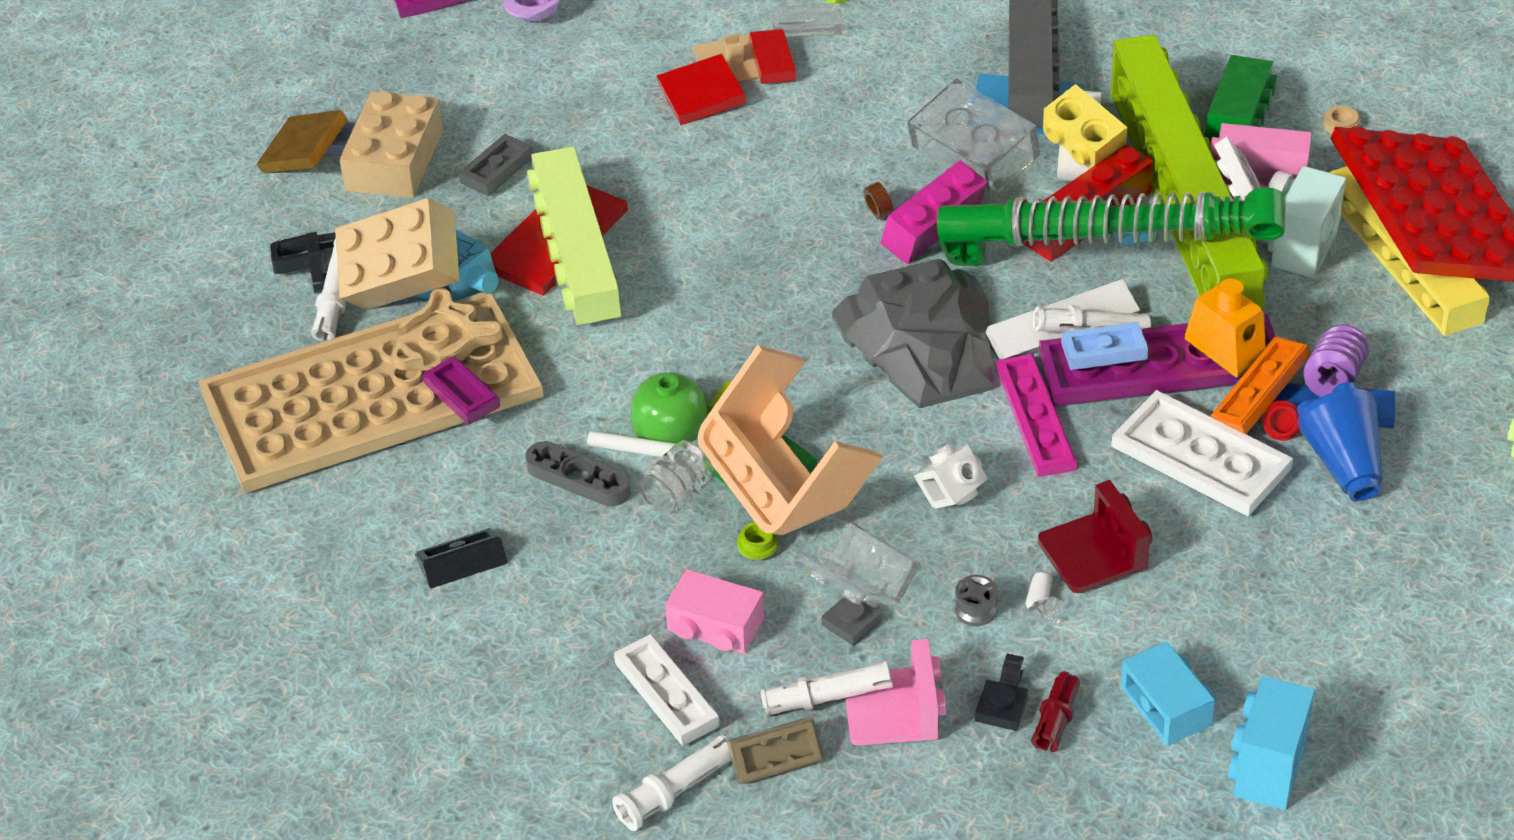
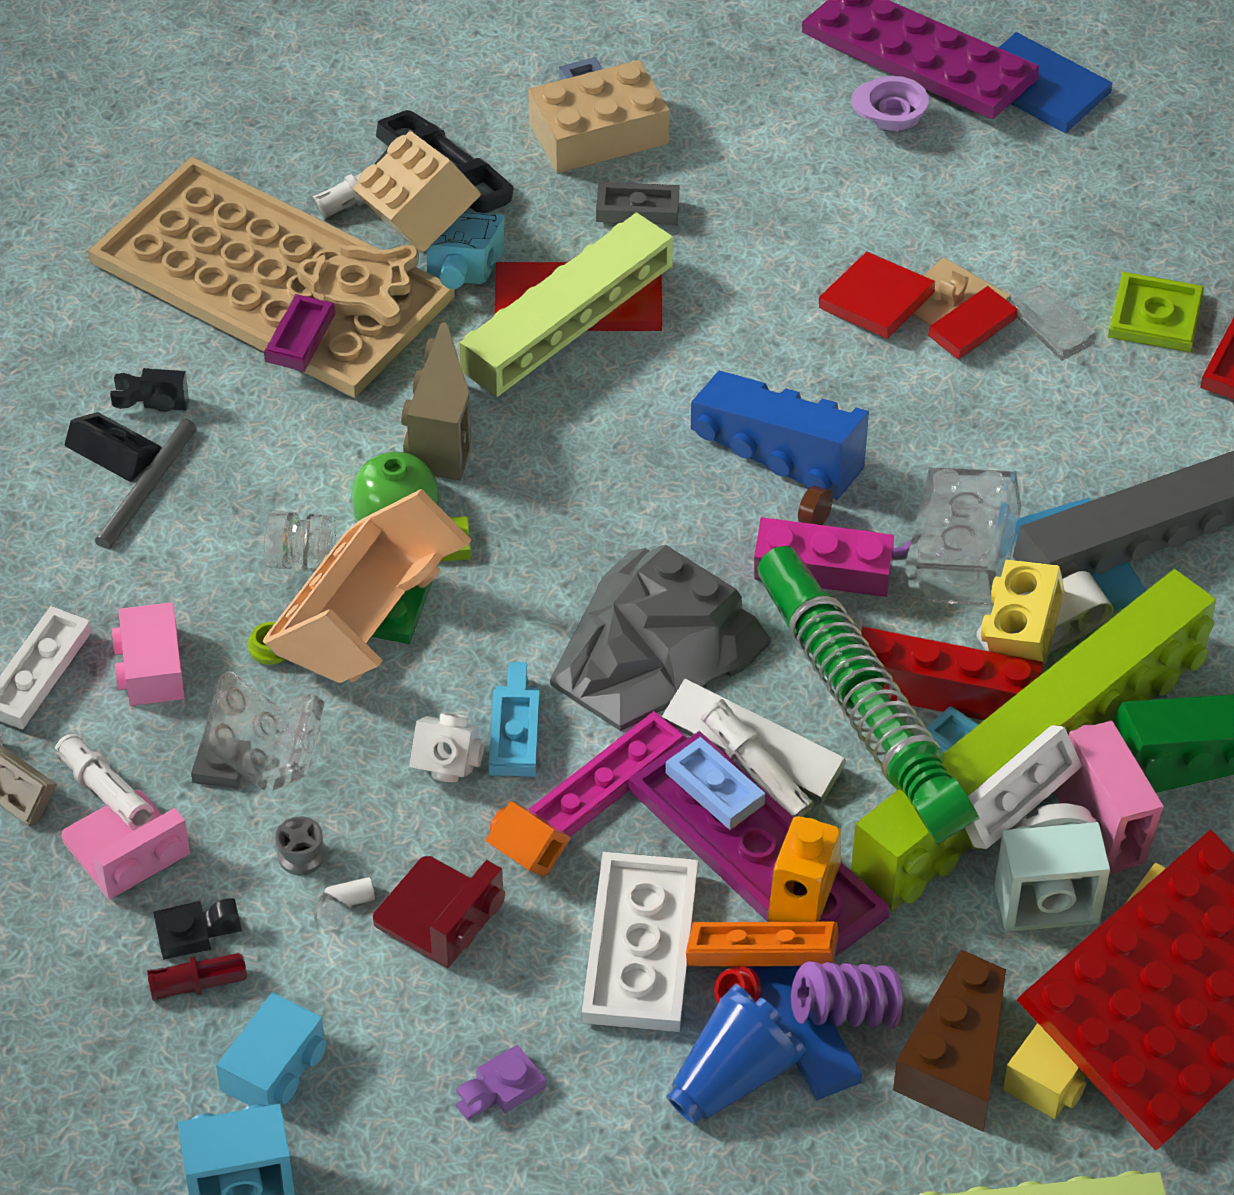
camera: 55 degrees right, 5 degrees up
(302, 141) = (550, 55): pearl gold tile -> none
(436, 500) = (157, 389): none -> black plate
(522, 552) = (145, 484): none -> dark grey bar
(569, 461) = (261, 459): dark grey beam -> none
(619, 335) = (439, 410): none -> dark tan slope
(628, 444) = (337, 490): white piece -> none
(799, 180) = (783, 431): none -> blue wedge
(939, 428) = (514, 725): none -> medium azure hinge
(1071, 467) = (527, 838): none -> orange brick
(1274, 576) = (502, 1080): none -> medium lavender plate
(1407, 330) = (954, 1043): none -> reddish brown wedge

